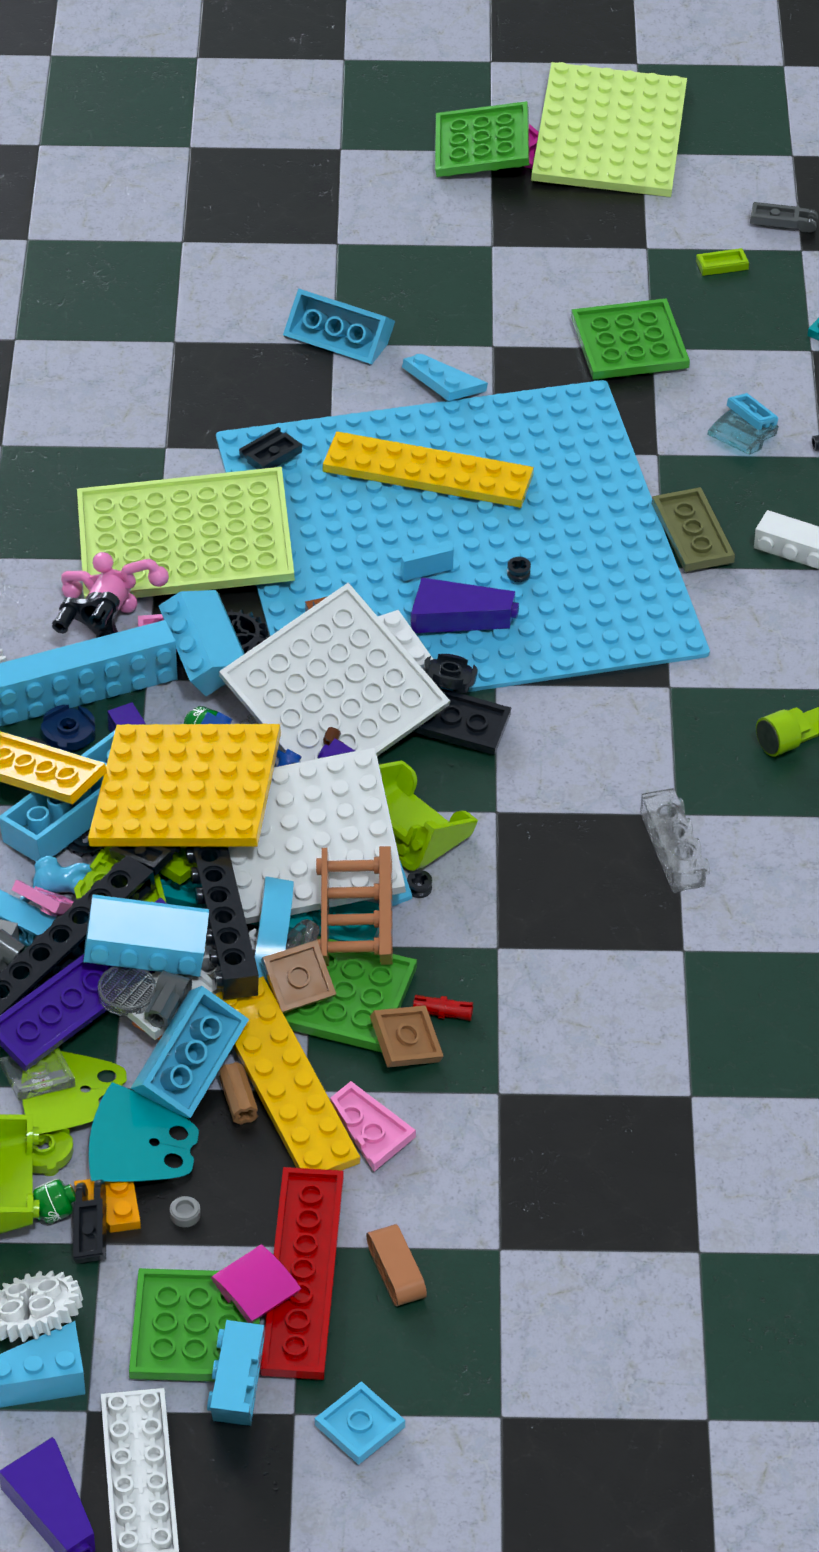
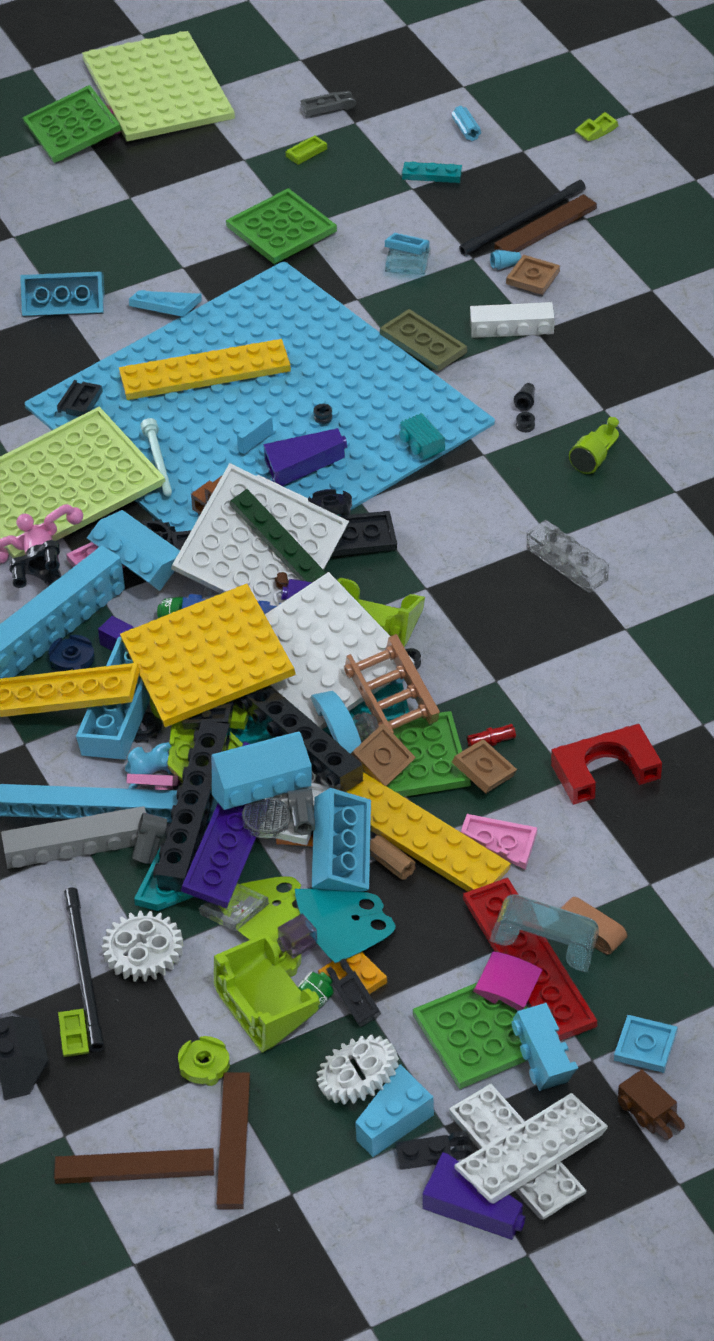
camera: 25 degrees left, 0 degrees up
(38, 1426) = (429, 1150): none -> black hinge
(69, 1133) = (297, 936): none -> clear purple brick
(147, 1477) = (531, 1148): none -> white plate
(185, 1211) = (412, 956): light grey tile -> none
(313, 1490) = (649, 1104): none -> reddish brown hinge
(320, 513) = (150, 429): none -> light aqua piece
(353, 1259) = (549, 922): none -> clear light blue windscreen
(354, 688) = (276, 537): none -> dark green plate
(514, 1071) = (624, 744): none -> red arch
(605, 637) = (422, 436): none -> teal brick
(747, 668) = (525, 422): none -> black bush
(759, 639) = (525, 397): none -> black cone

